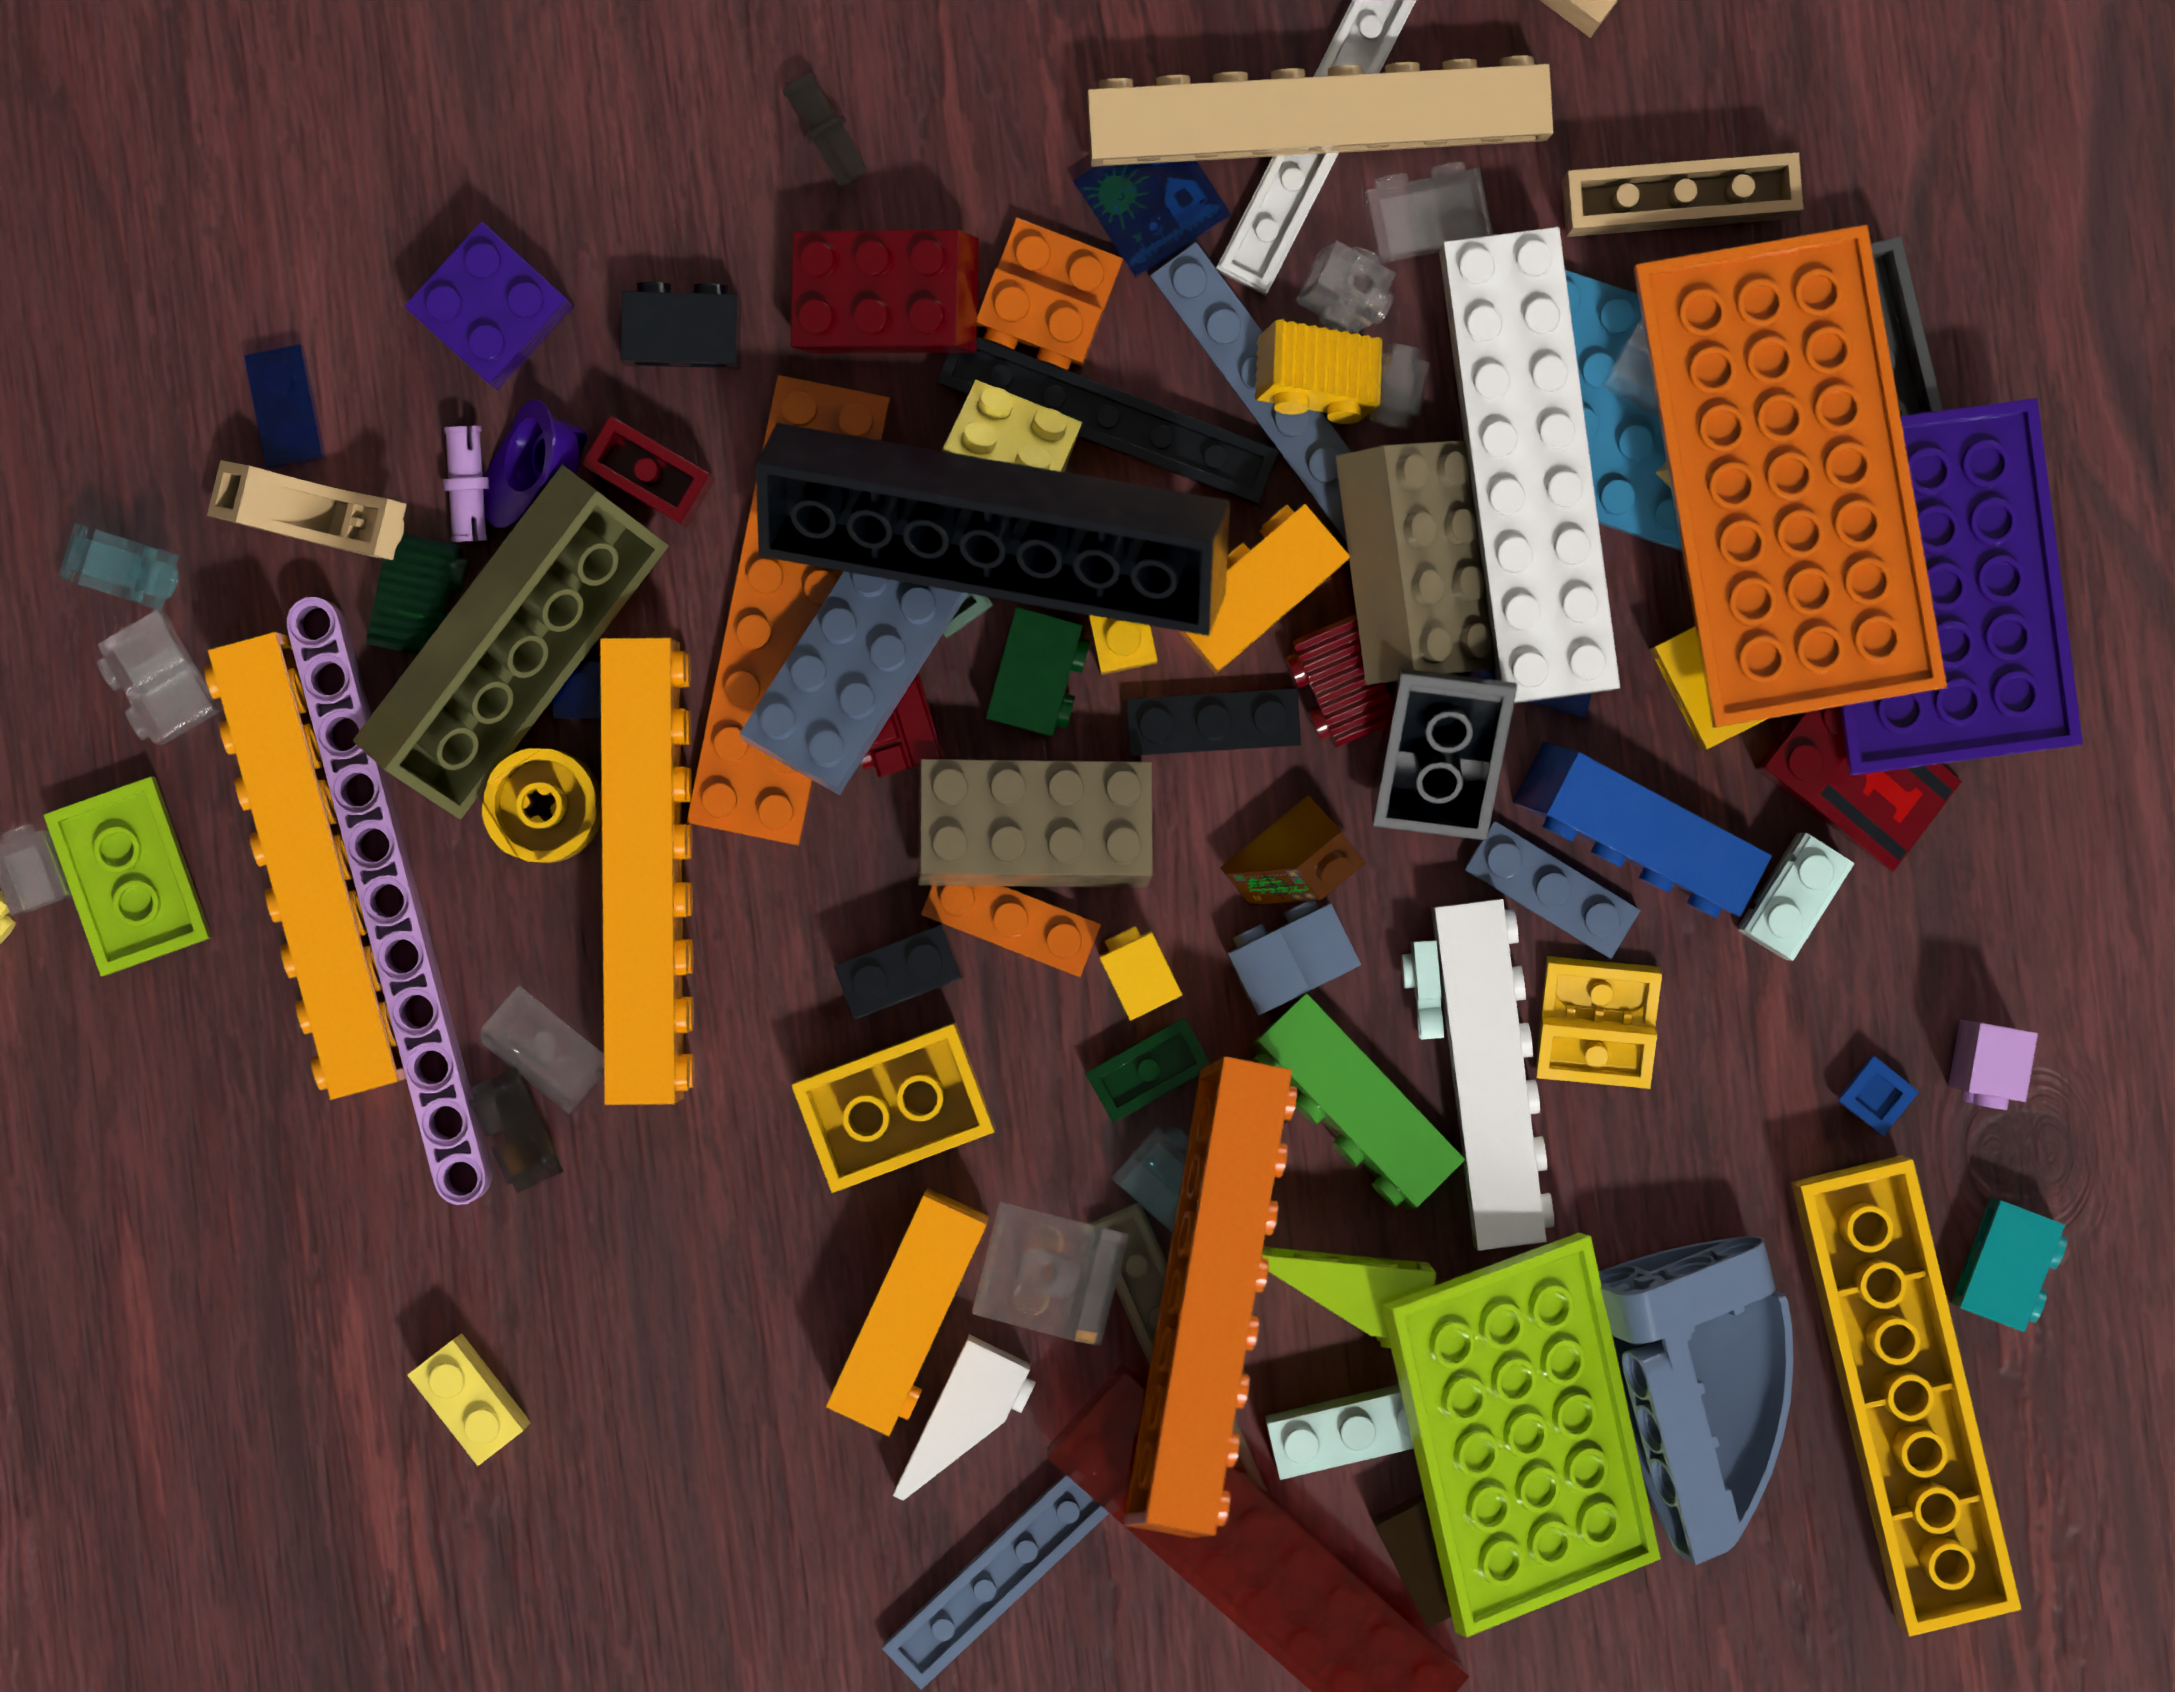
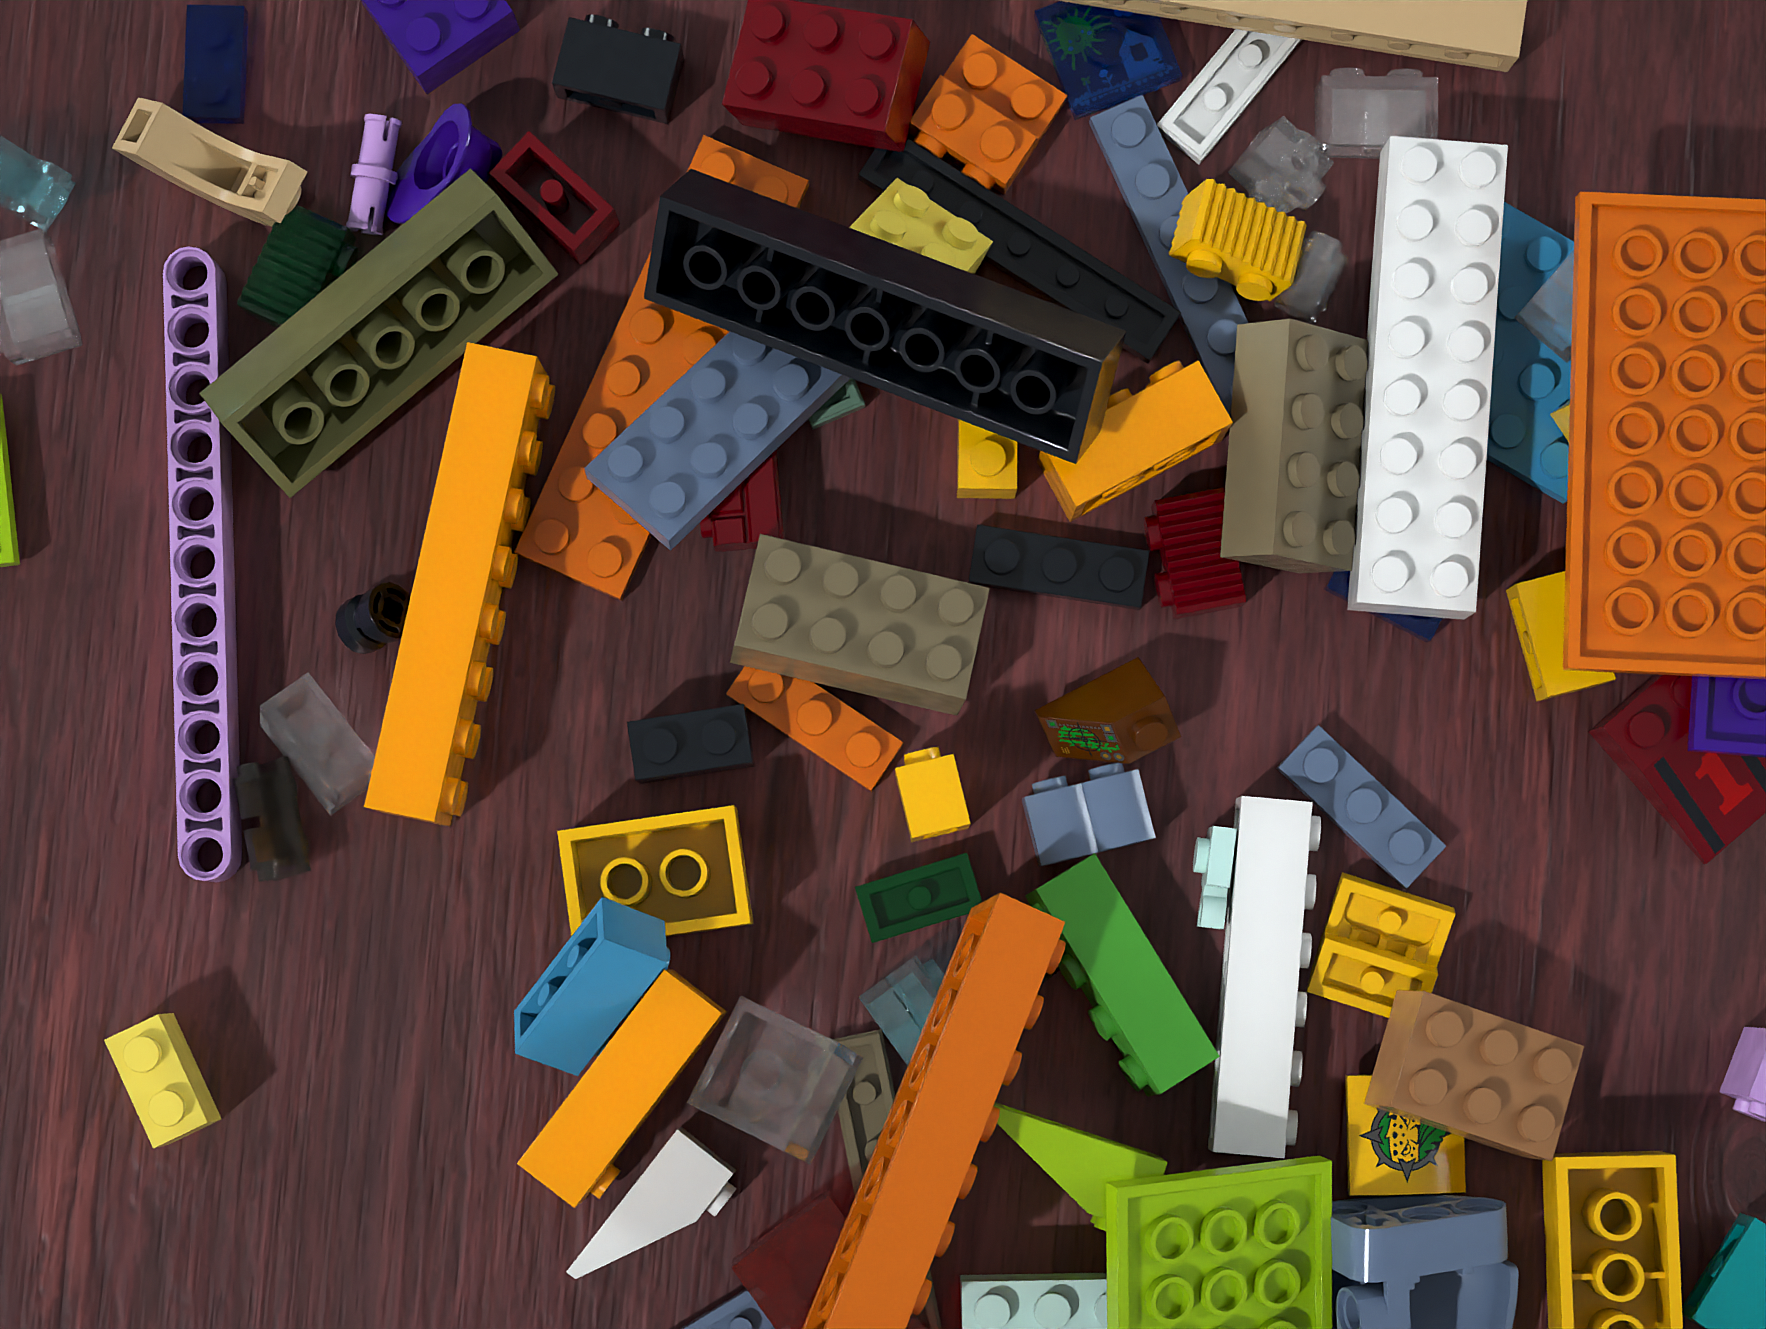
camera: 15 degrees right, 5 degrees down
(305, 862) = (123, 507): light orange brick -> none
(510, 798) = (344, 490): yellow brick -> none
(568, 917) = (373, 618): none -> black wheel
(580, 693) = (434, 403): clear blue plate -> none
(856, 1225) = (590, 986): none -> dark azure brick
(1037, 672) = (893, 479): dark green brick -> none
(1442, 754) = (1283, 639): black slope -> none
(1643, 829) = (1465, 763): blue wedge -> none
(1657, 1192) = (1397, 1153): none -> yellow slope
(1682, 194) = (1632, 147): tan brick -> none
(1709, 1124) = (1474, 1074): none -> medium nougat brick
(1795, 896) = (1605, 864): light aqua brick -> none
(1877, 1095) = (1647, 1084): blue plate -> none

